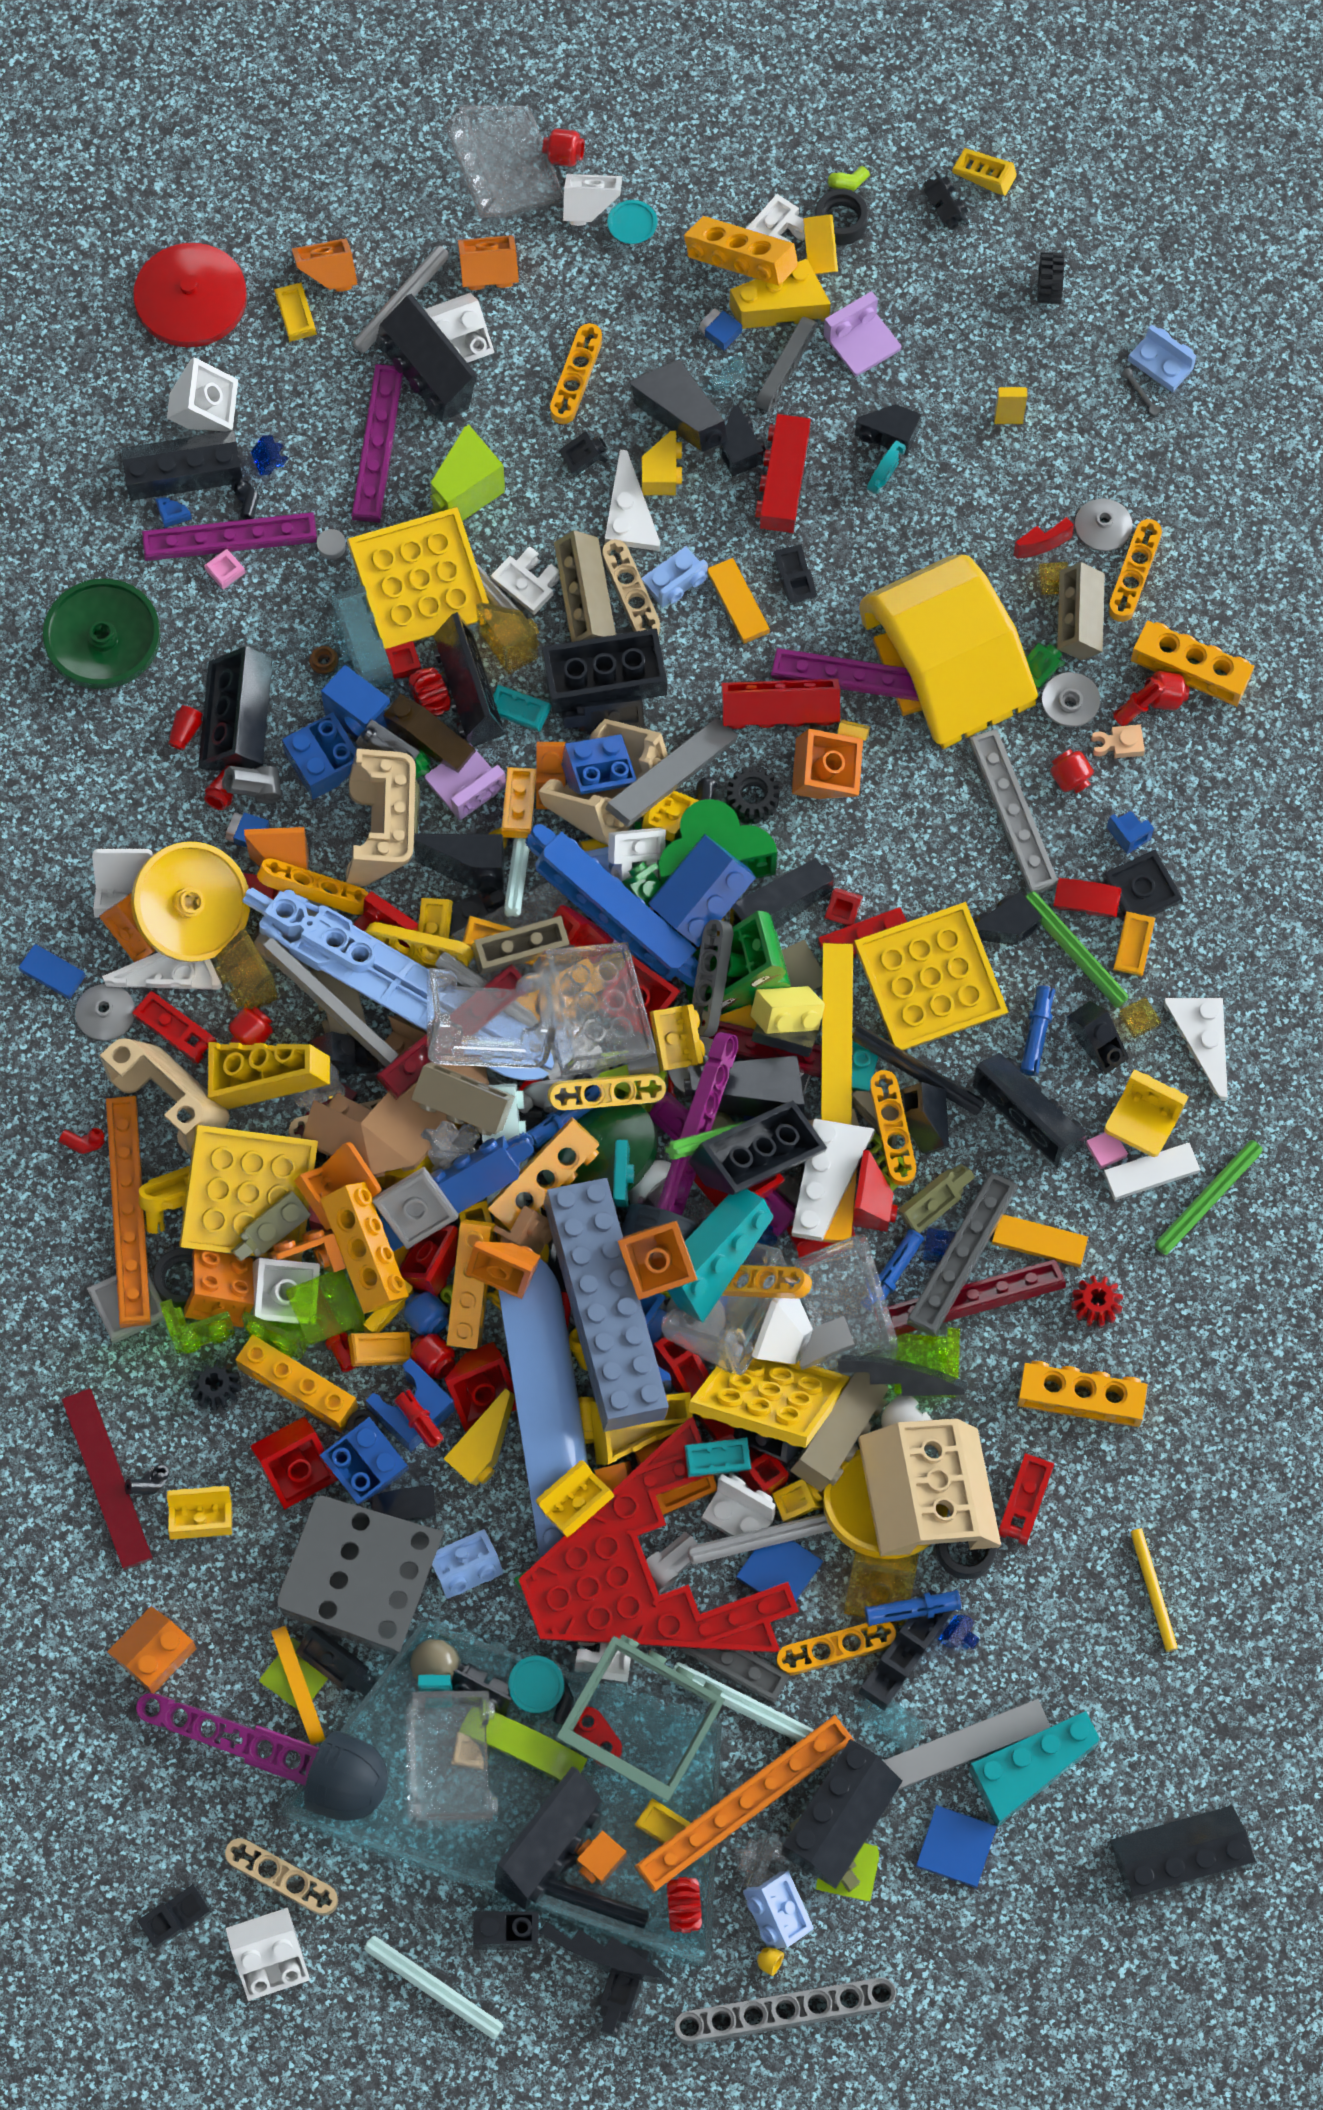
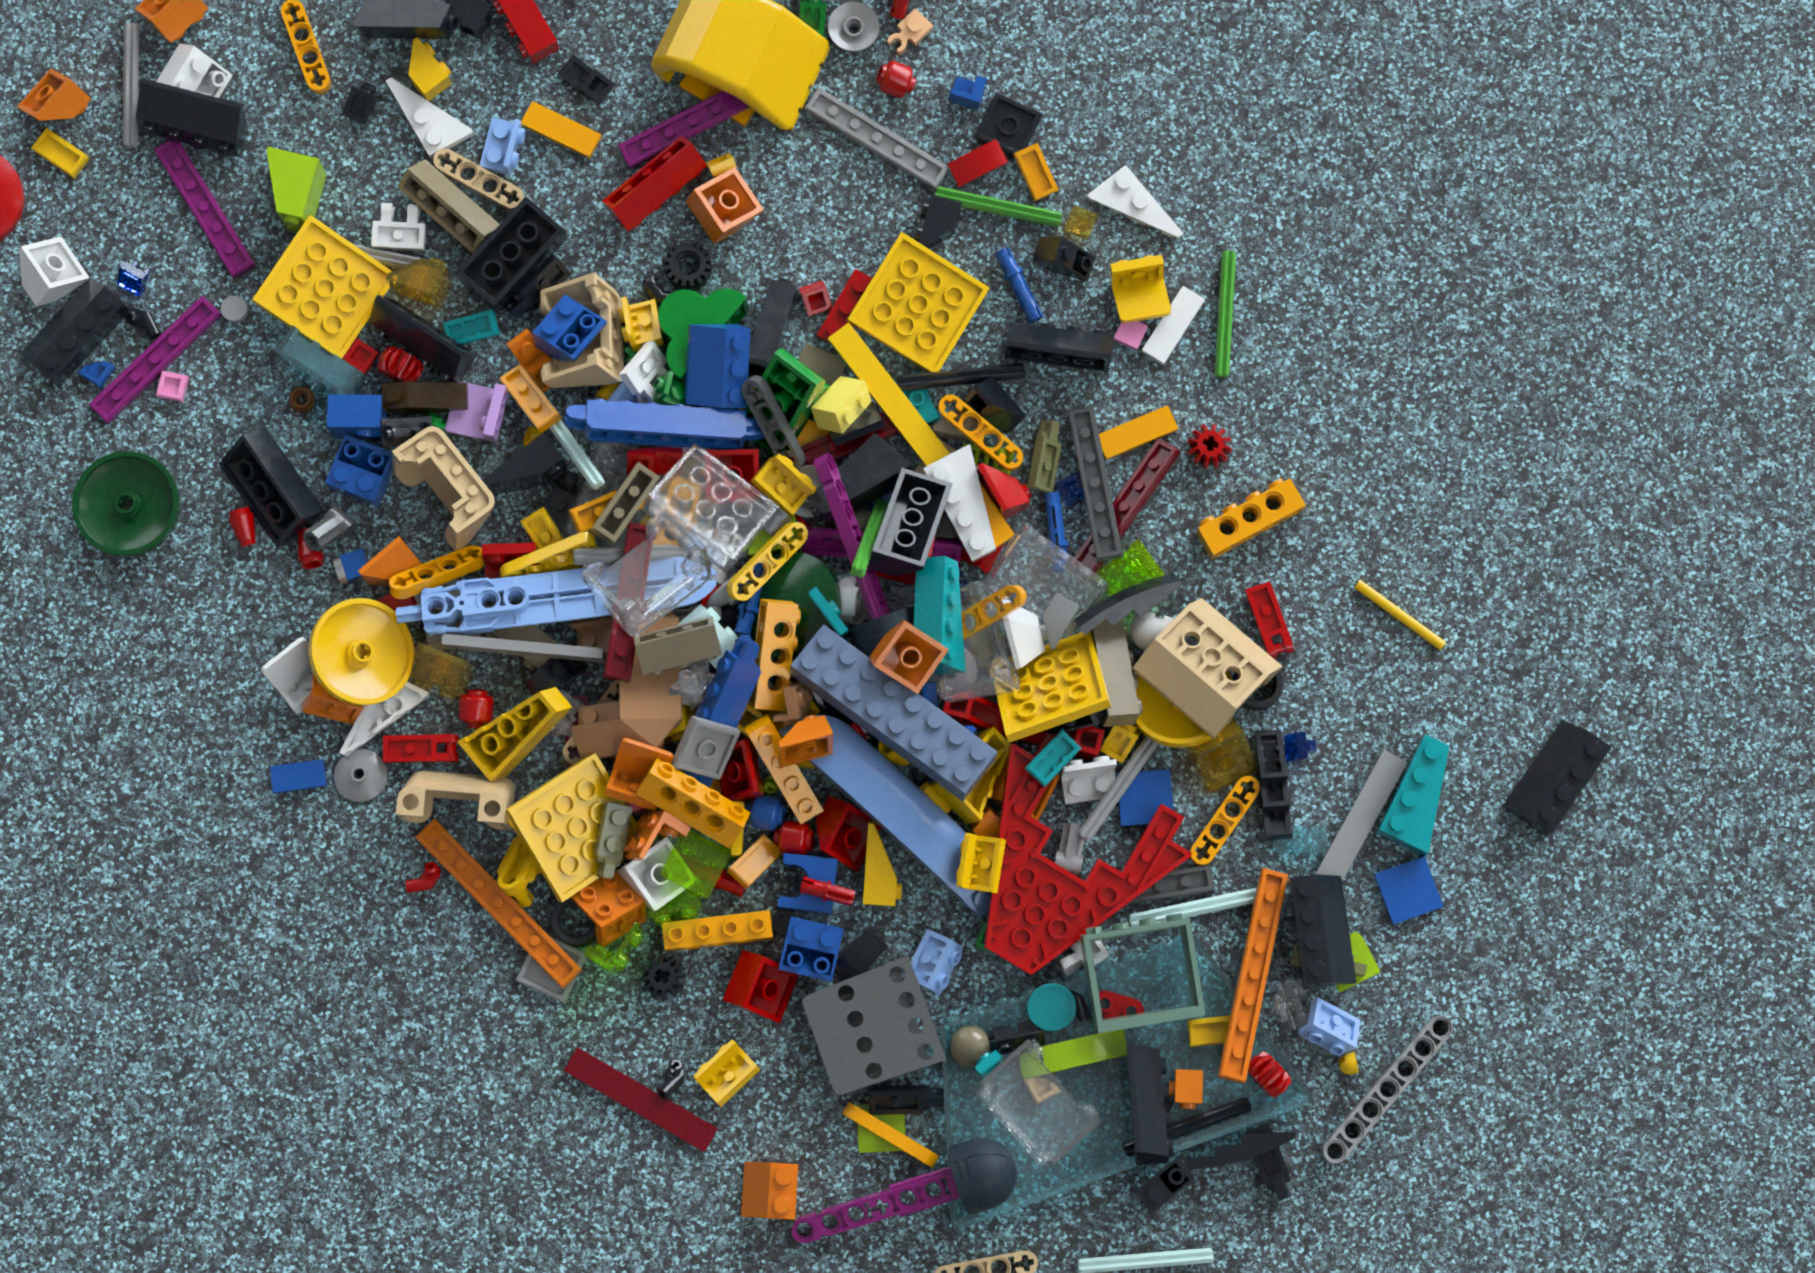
camera: 40 degrees left, 10 degrees up
(671, 772) = (622, 295): tile -> none
(911, 1608) = (1264, 746): blue pin -> none

